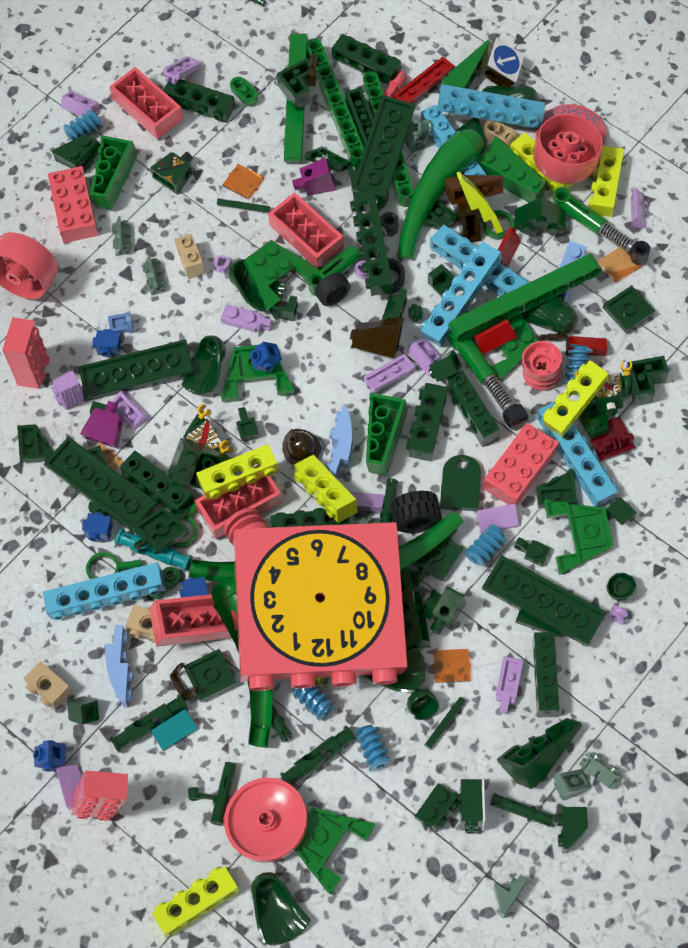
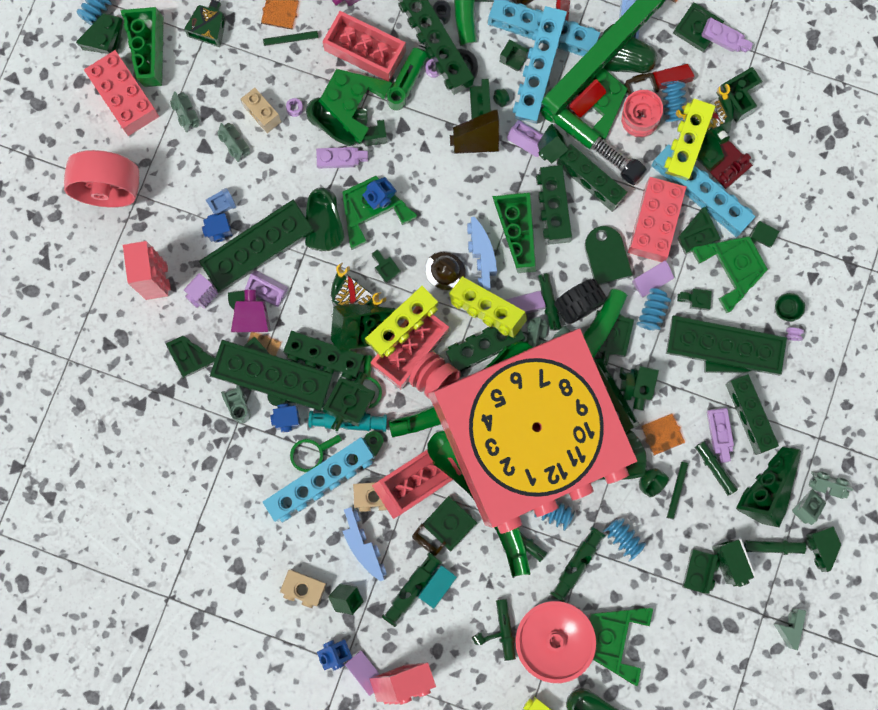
camera: 25 degrees left, 15 degrees up
(58, 498) = (235, 401): none -> sand green piece
(193, 587) = (403, 449): blue brick -> none
(332, 289) = (414, 100): black tyre -> none
(389, 373) = (499, 168): lavender hinge -> none
(490, 710) = (716, 468): none -> dark green pin
(651, 324) = (725, 36): none -> lavender hinge

